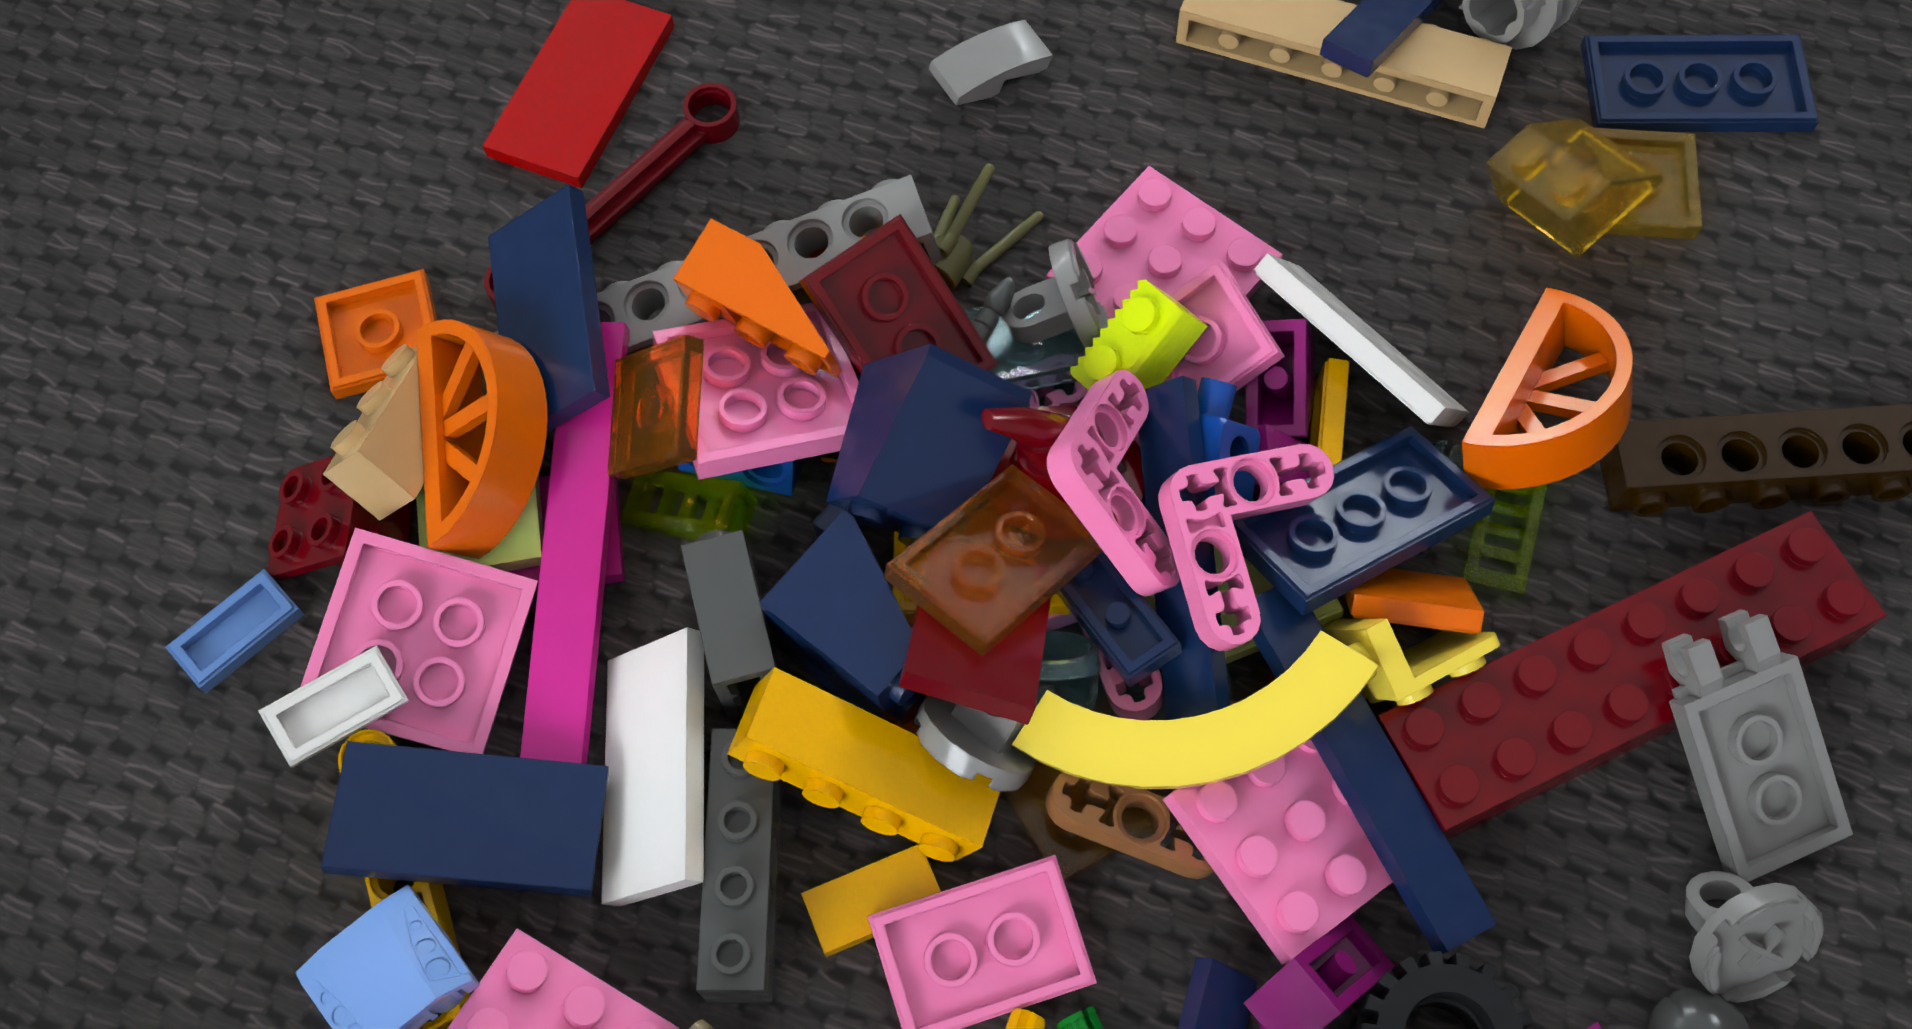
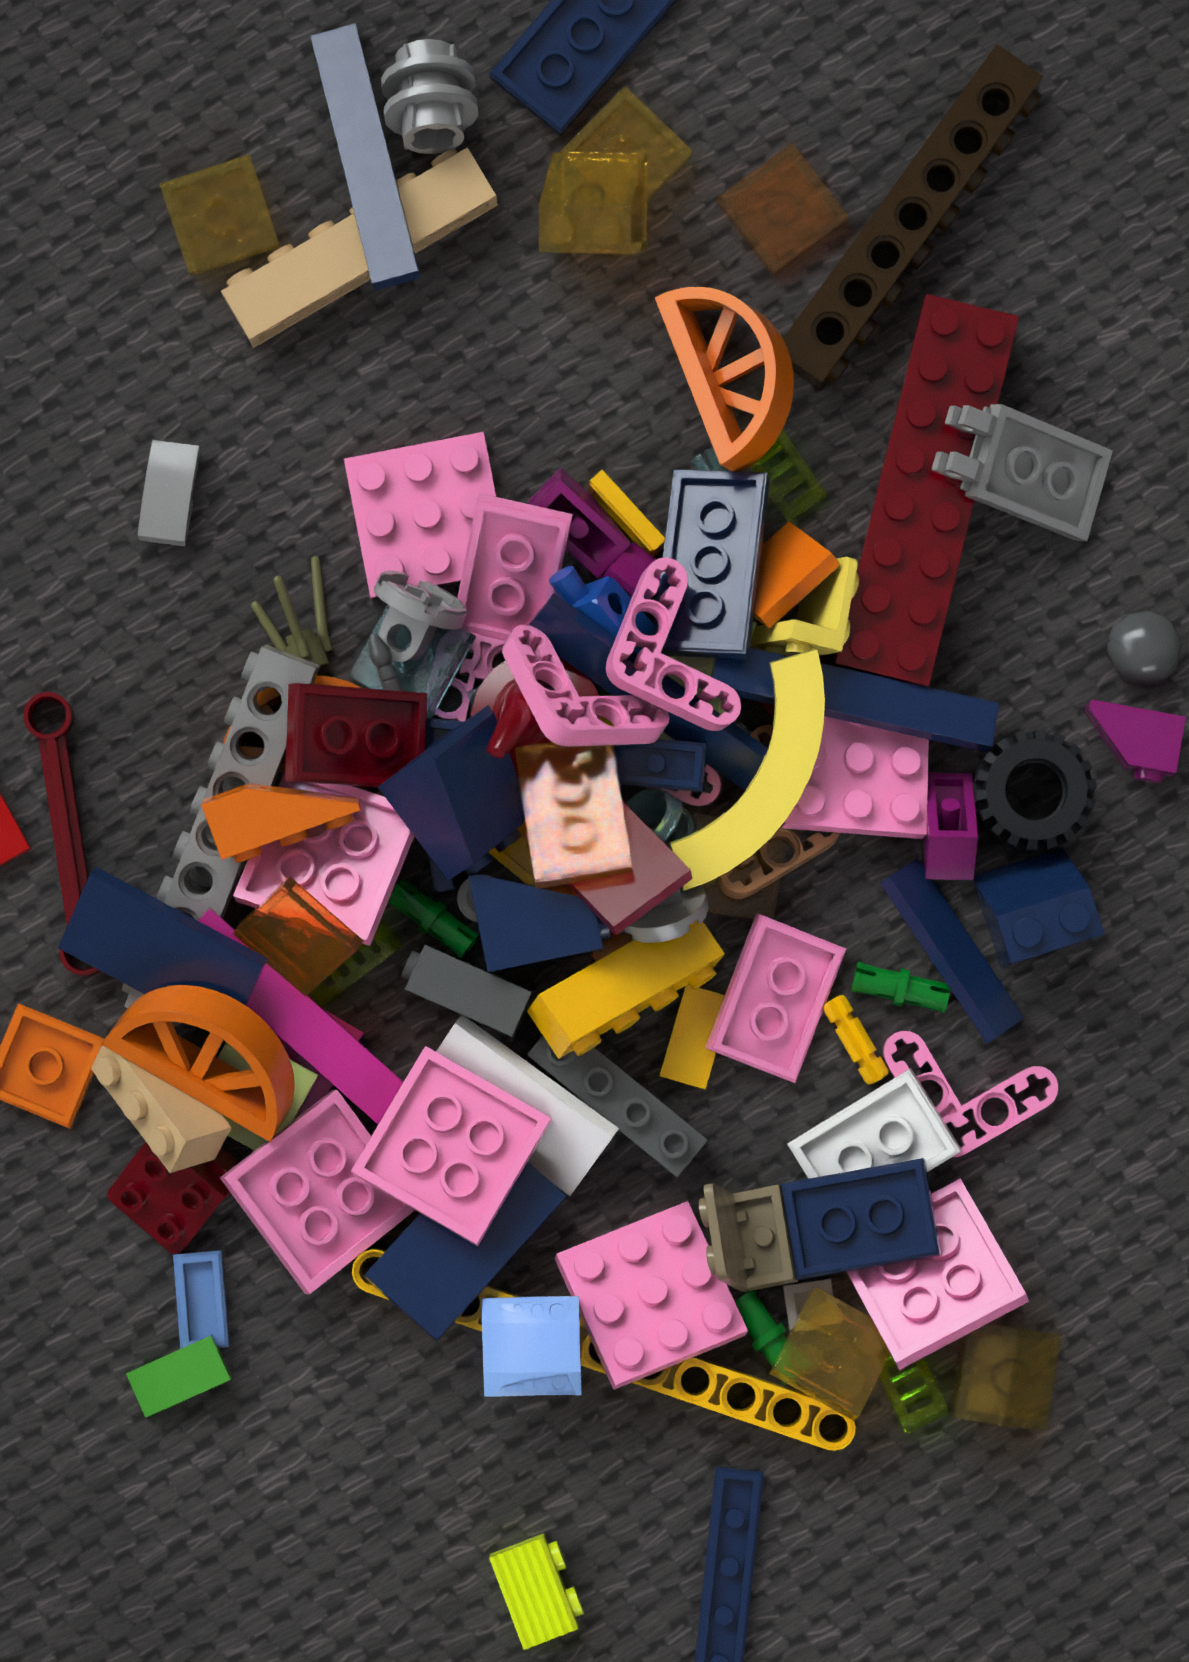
camera: 50 degrees left, 20 degrees up
(138, 665) = (179, 1376): none -> bright green slope
(333, 706) = (330, 1268): white tile -> none
(552, 727) = (451, 1145): none -> bright pink plate
(788, 533) = (433, 918): none -> green pin
(1143, 338) = (490, 596): neon yellow brick -> none
(1361, 342) = (594, 448): white tile -> none
(1733, 347) = (782, 209): none -> clear orange tile
(1752, 938) = (1120, 571): light grey tile -> none

